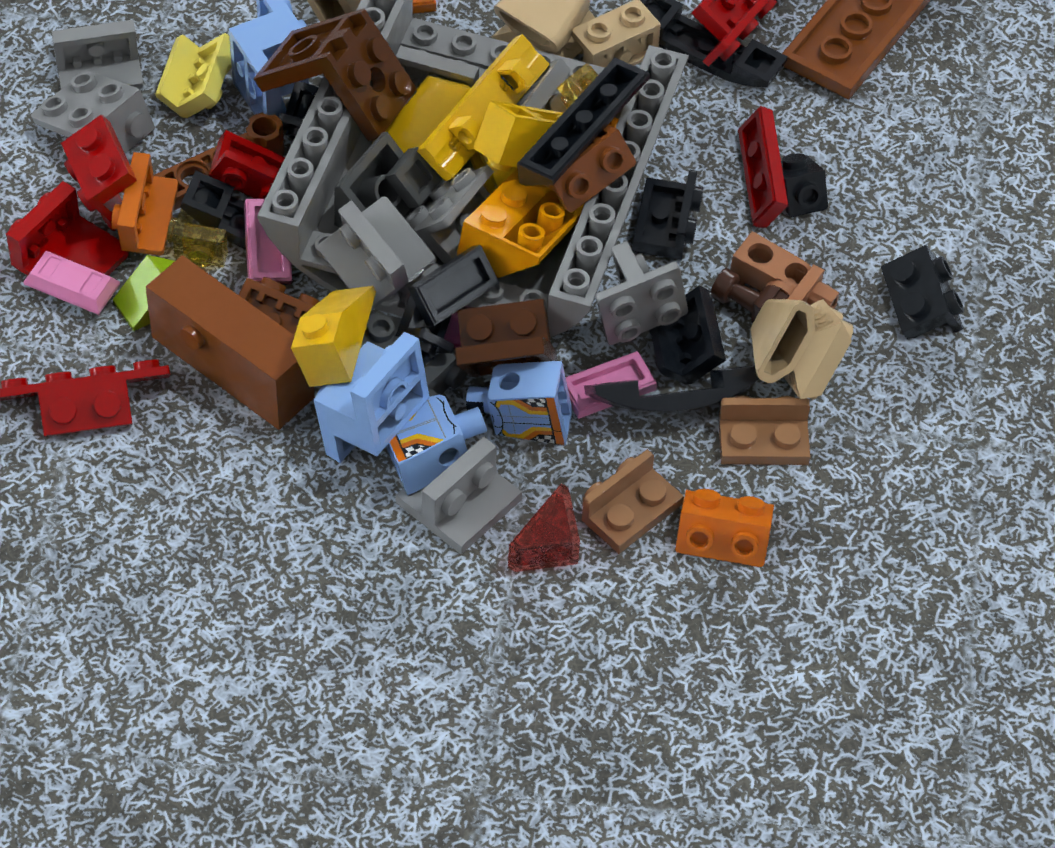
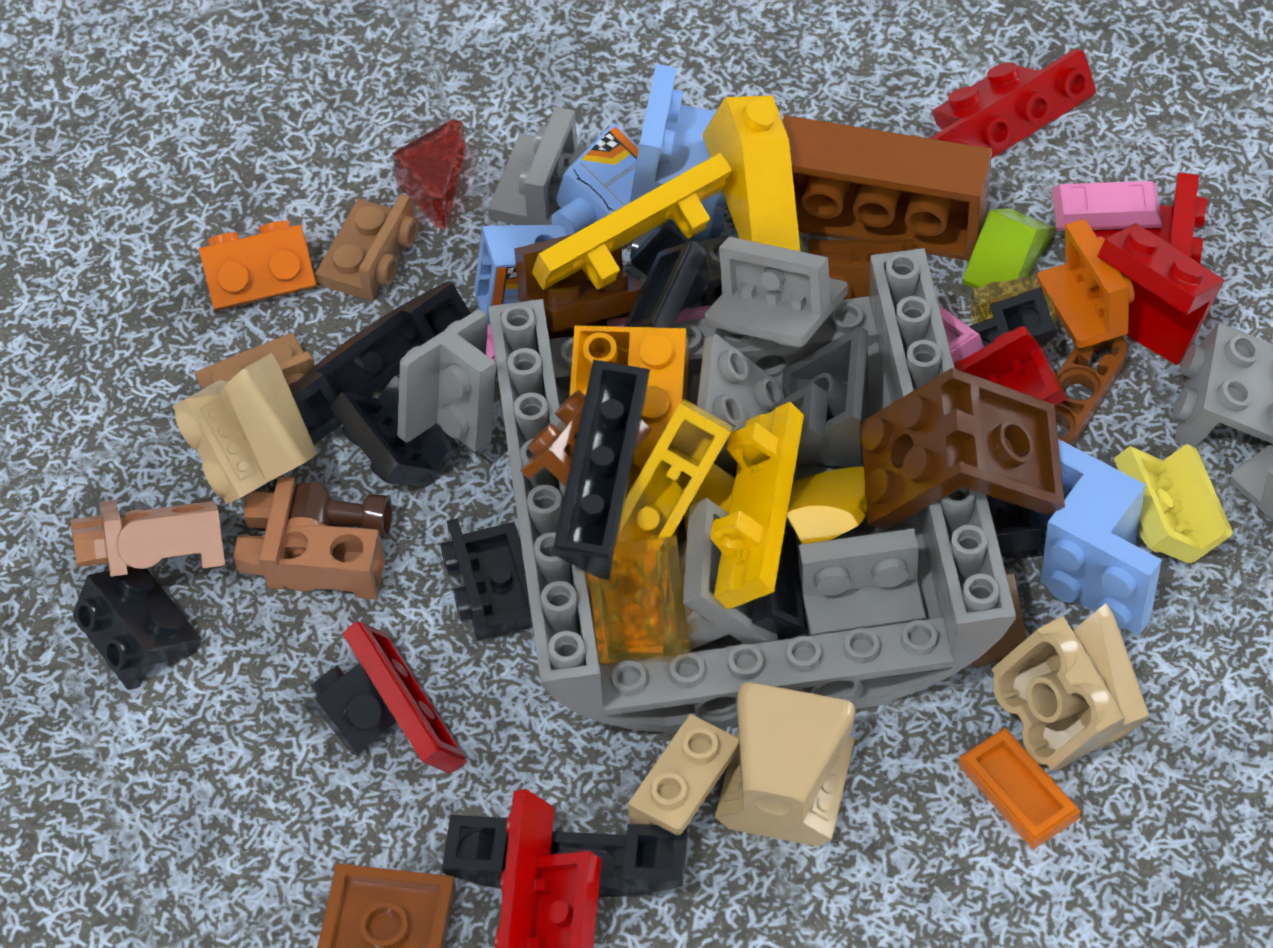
camera: 160 degrees right, 0 degrees up
(452, 318) = (592, 246): none -> yellow hinge
(905, 321) = (146, 535): none -> nougat hips

